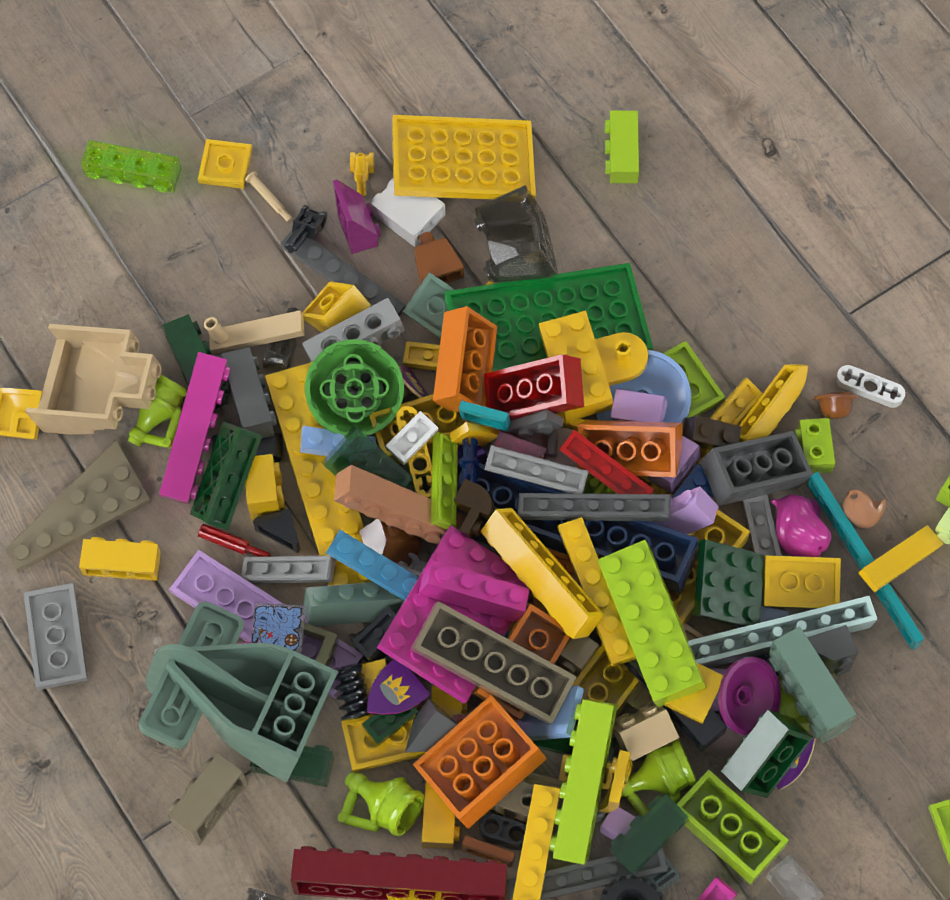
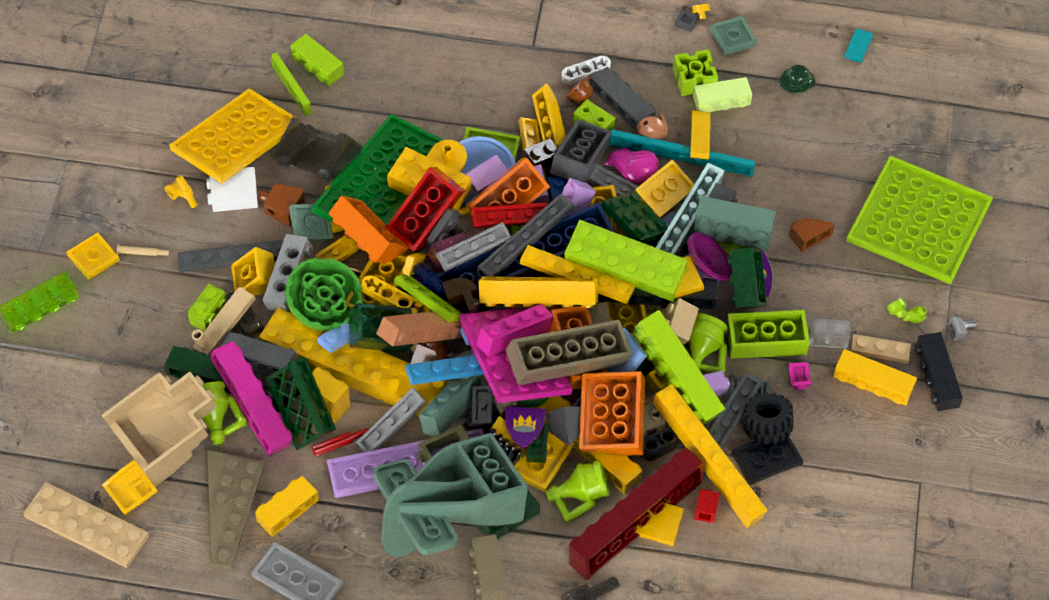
camera: 50 degrees left, 10 degrees down
(260, 302) = (206, 307): none -> lime brick
(279, 625) = (424, 446): tile -> none
(280, 528) = (360, 409): black slope -> none
(305, 225) = (186, 244): black connector -> none
(355, 218) = (210, 218): magenta slope -> none
(411, 438) = (387, 288): white plate -> none
(484, 416) = (413, 244): teal tile -> none
(487, 851) = (652, 465): dark orange tile -> none
(572, 150) = (291, 84): none -> lime tile
(622, 769) = (696, 353): yellow plate -> none
(648, 833) = (736, 368): clear green brick -> none
(870, 447) = (621, 97): none -> dark grey brick
(898, 764) = (810, 232): none -> dark orange slope

